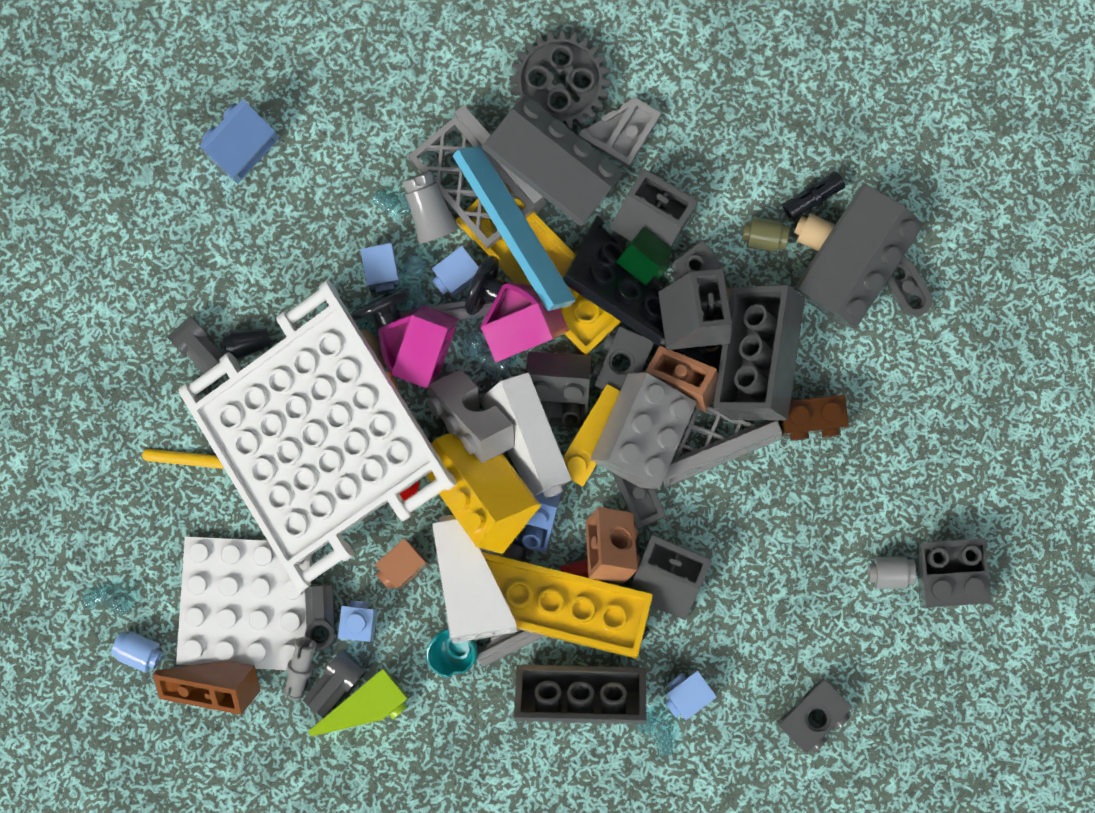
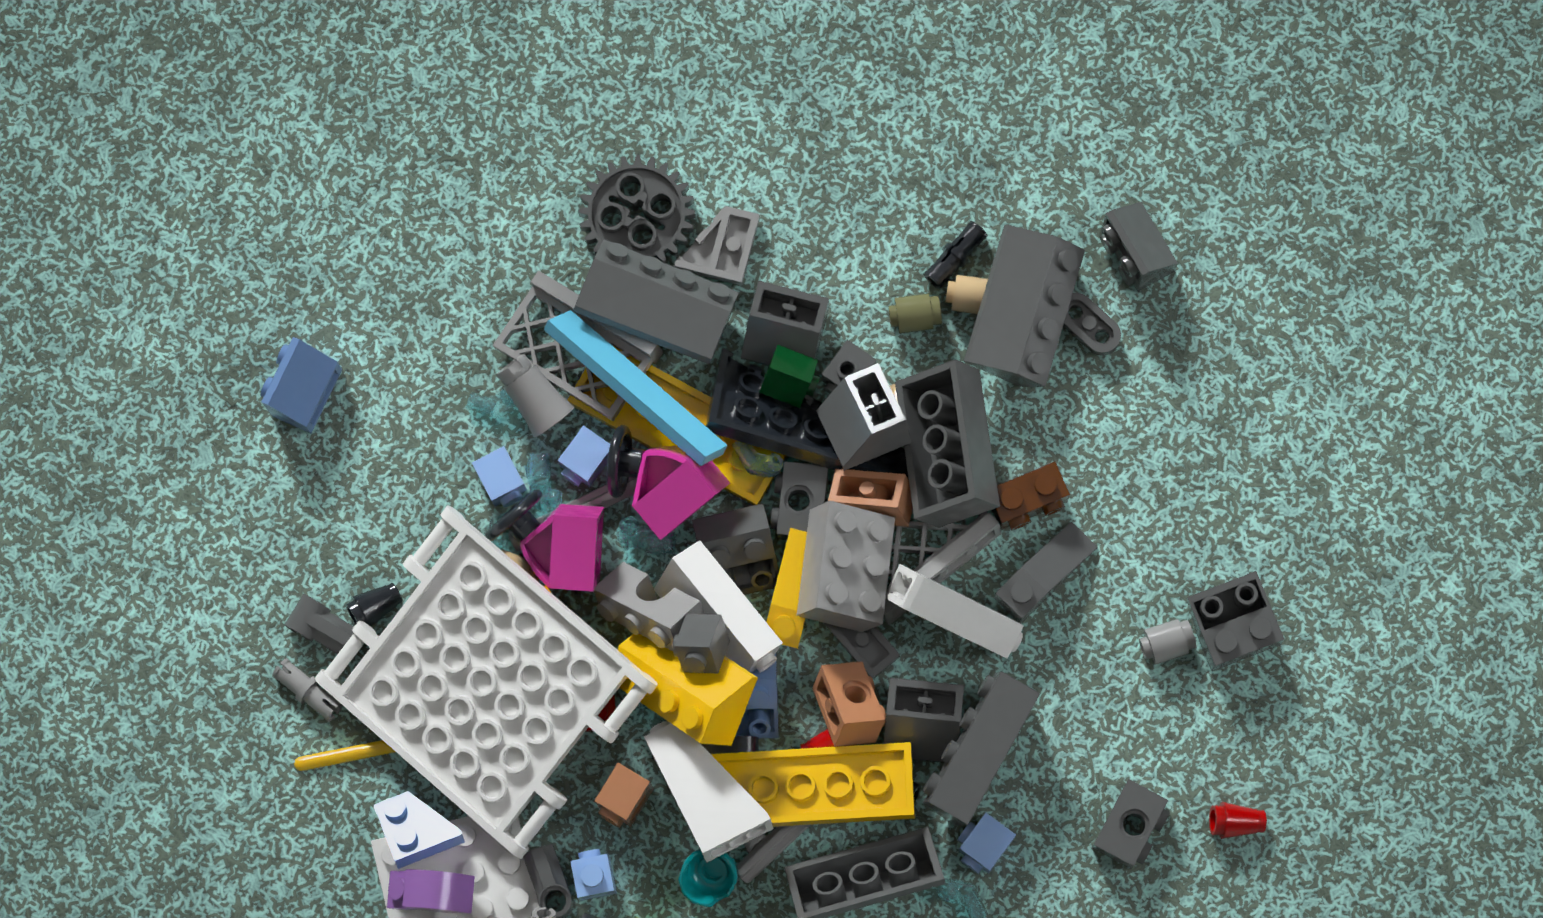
camera: 15 degrees left, 5 degrees down
(169, 395) = (307, 690): none -> light grey pin
(219, 596) = (430, 891): none -> medium lavender brick
(222, 539) = (415, 829): none -> wing
(502, 461) = (701, 643): none -> dark grey brick
(597, 321) = (757, 463): none -> clear light blue arm
(710, 617) = (980, 748): none -> dark grey slope
(721, 495) = (954, 611): none -> white slope
(807, 483) = (1044, 572): none -> dark grey slope
(902, 739) = (1235, 820): none -> red cone
(968, 234) = (1137, 245): none -> dark grey slope

